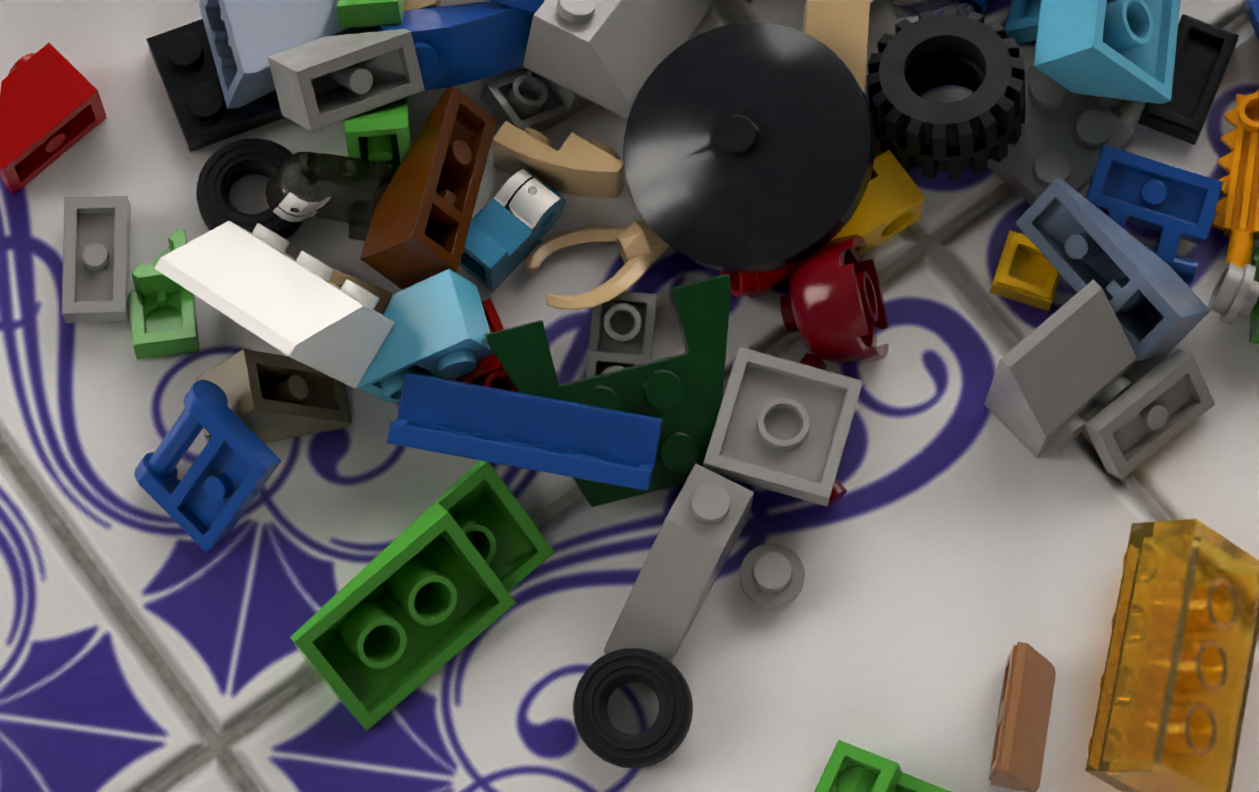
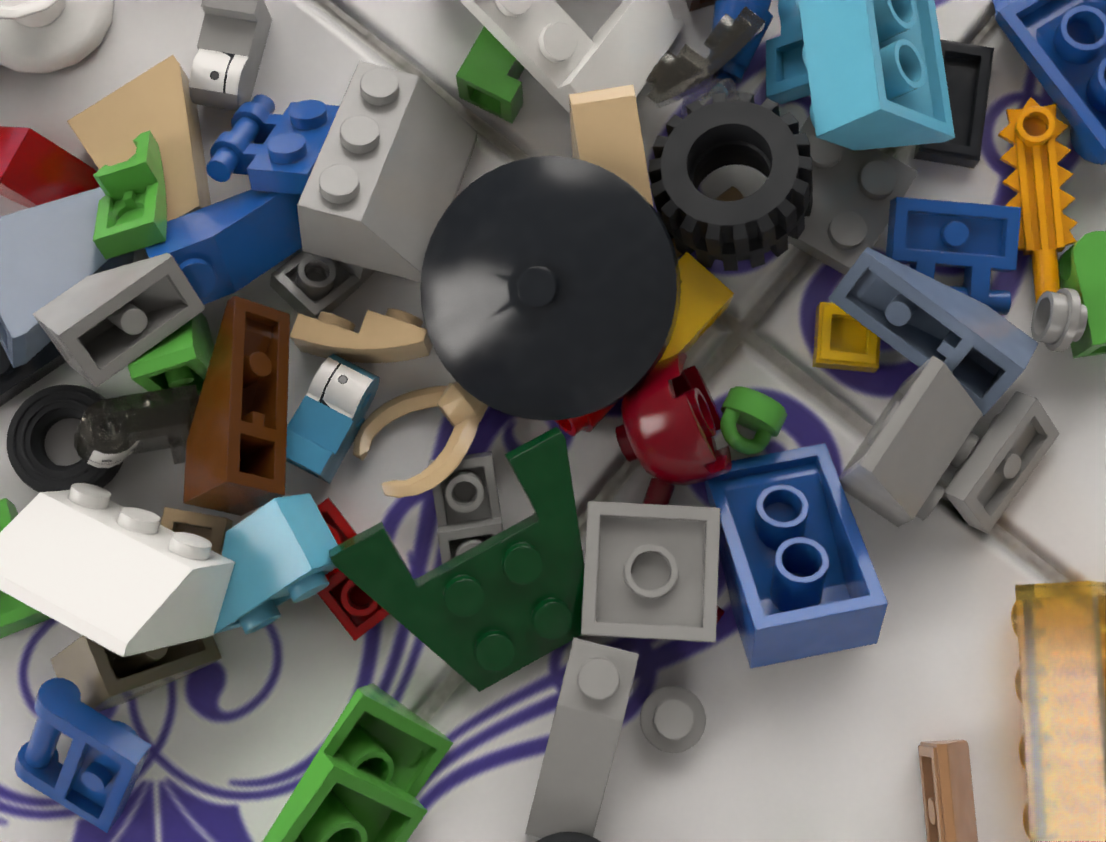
camera: 10 degrees left, 10 degrees up
(526, 431) = (394, 652): blue fence -> none
(919, 315) = (753, 412): none -> bright green tile
(924, 454) = (794, 558): none -> blue slope

